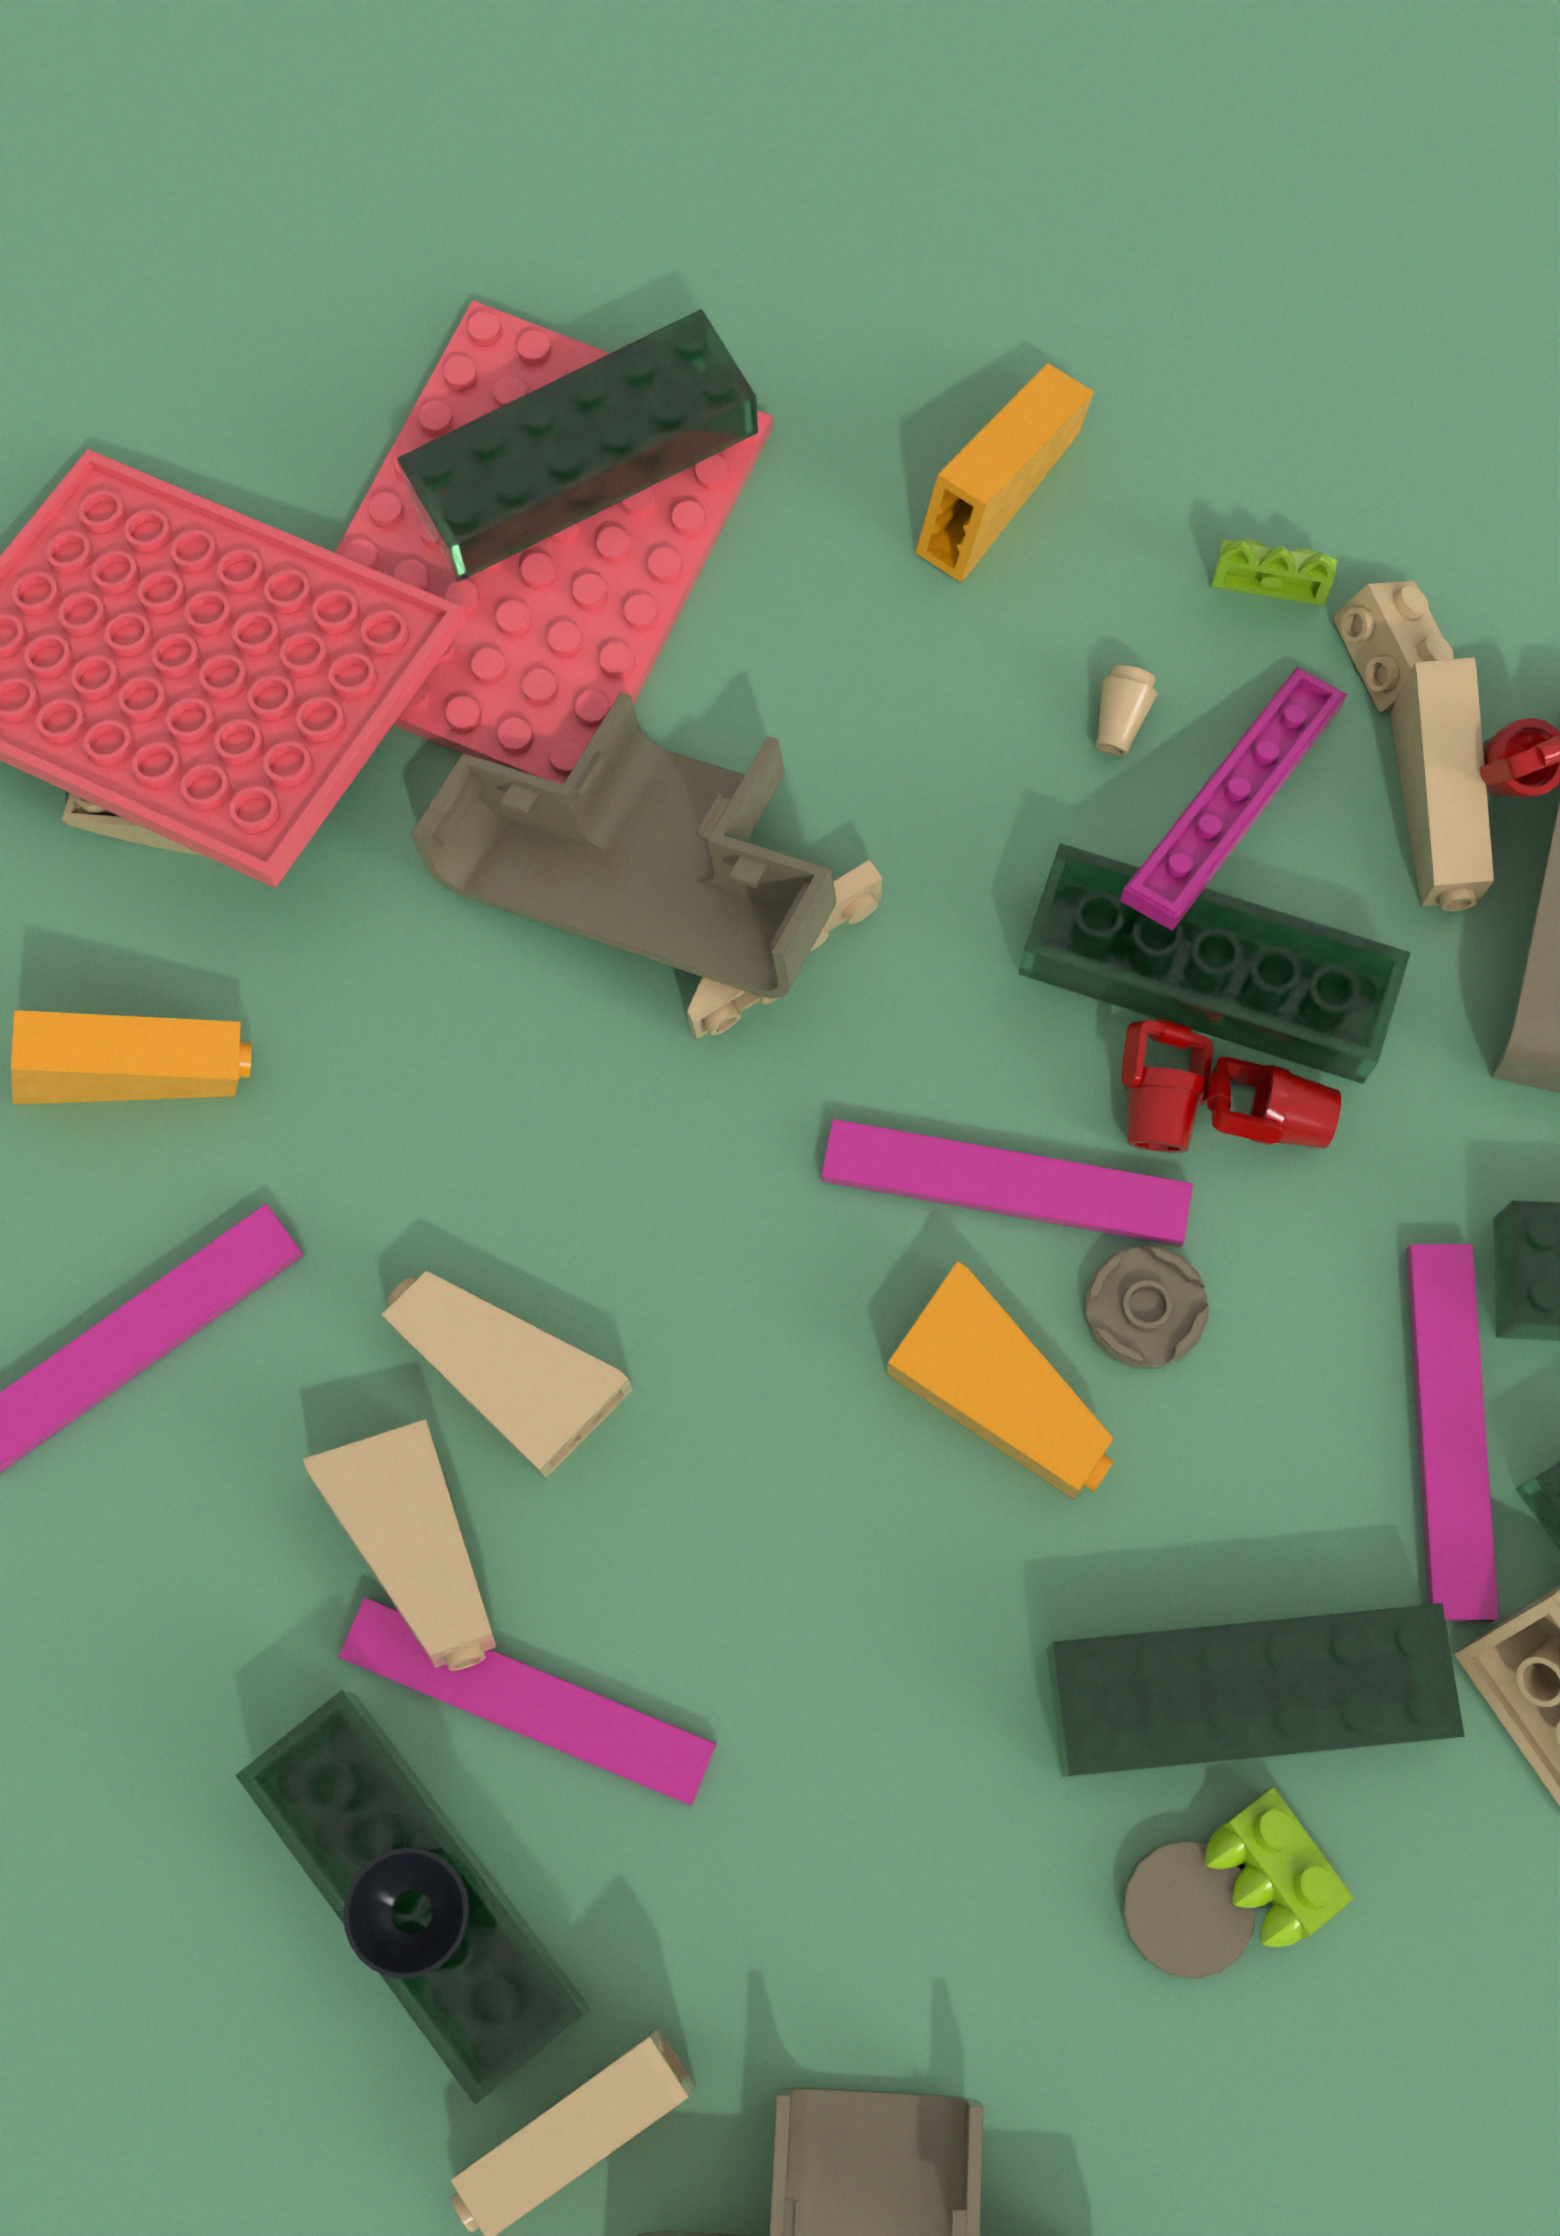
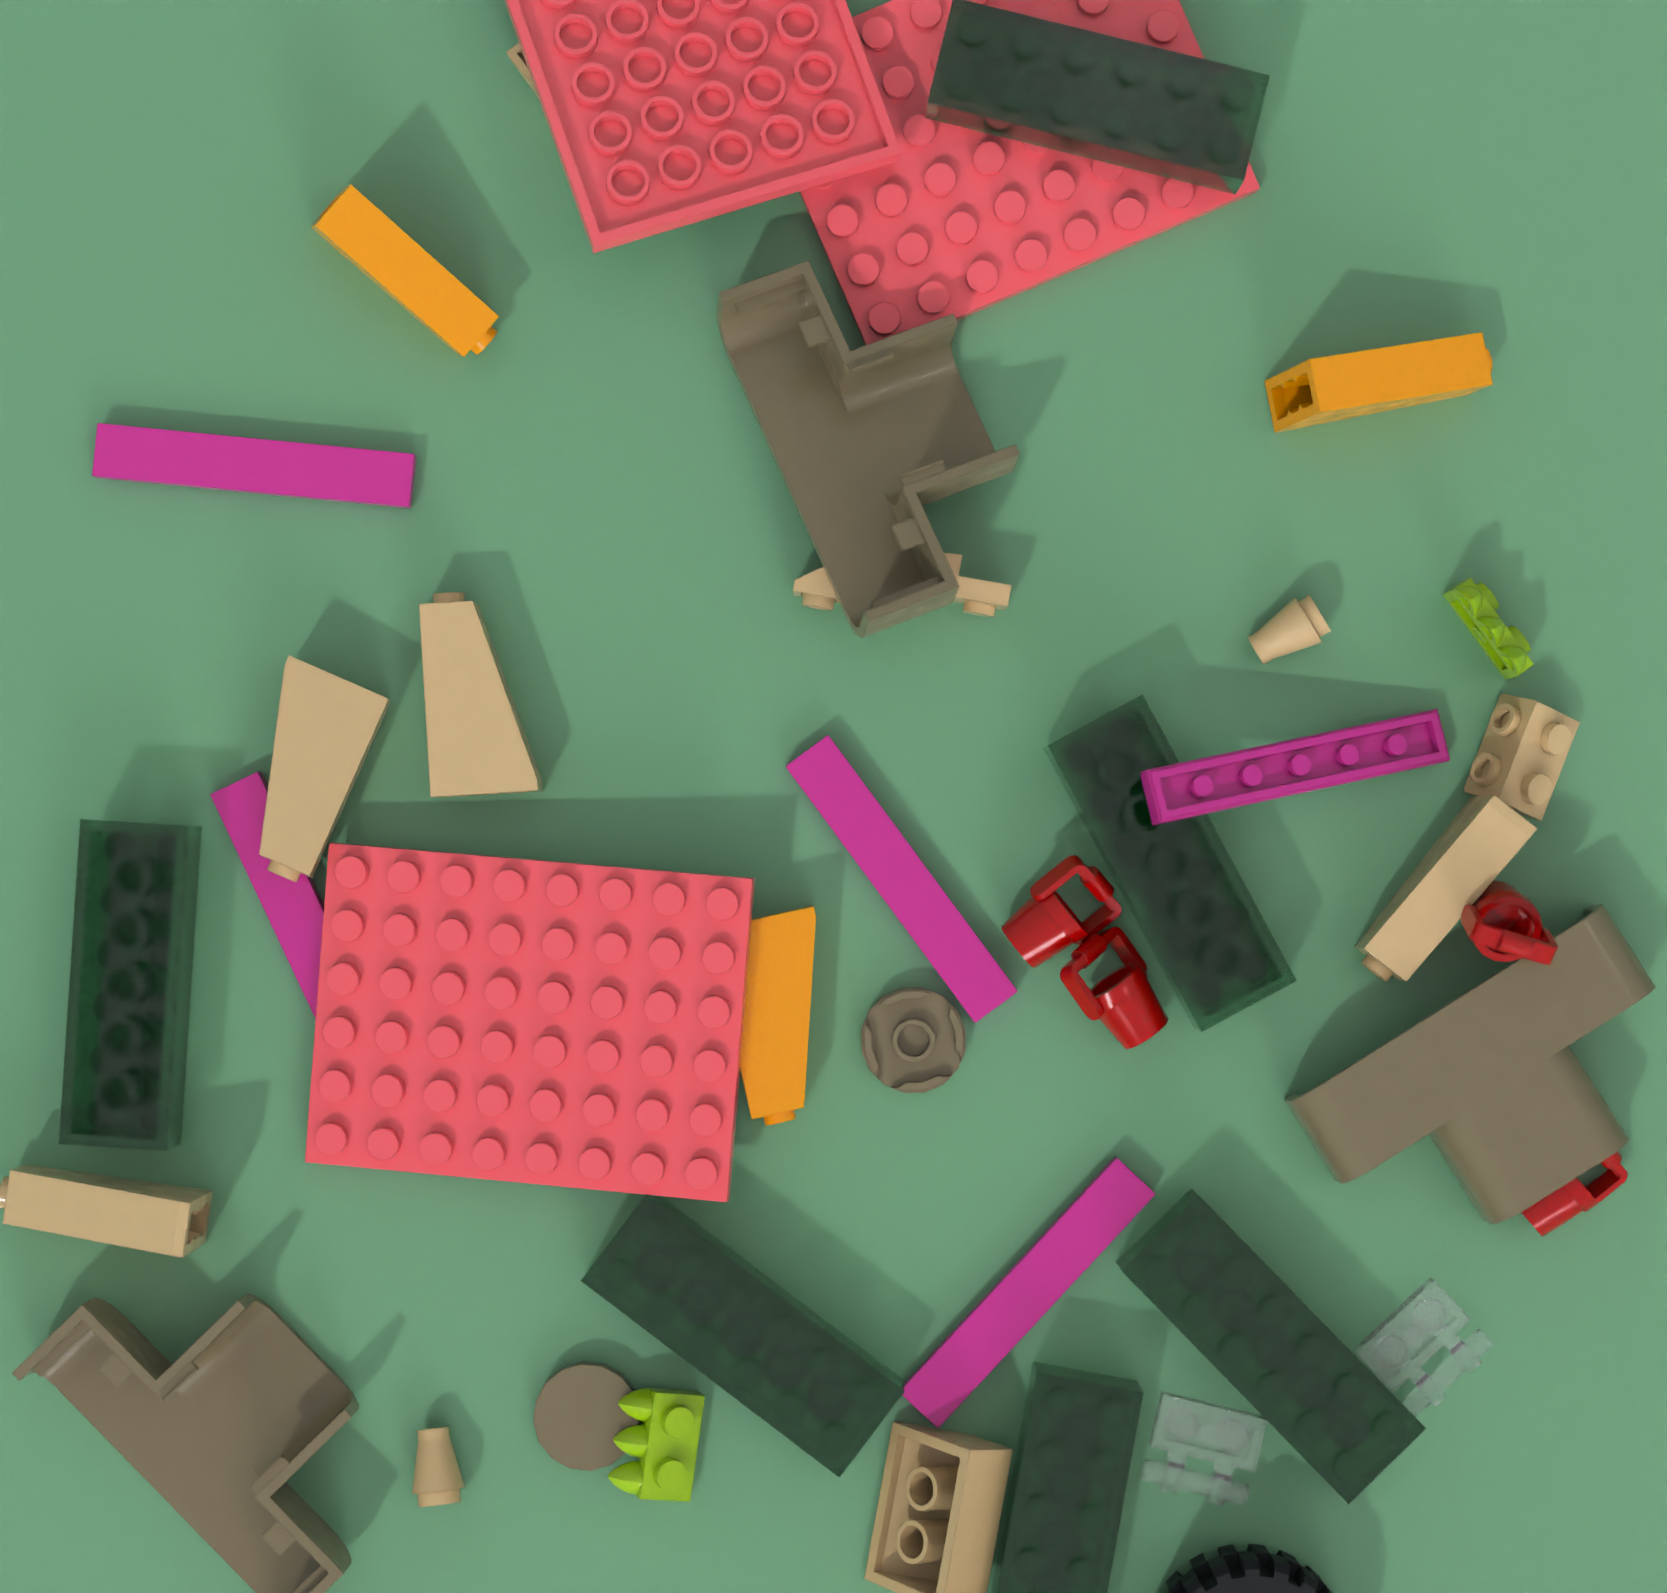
camera: 40 degrees right, 15 degrees up
(371, 1919) = (82, 1001): black piece -> none
(804, 1593) = (530, 1021): none -> coral plate
(1103, 2093) = (436, 1469): none -> tan cone

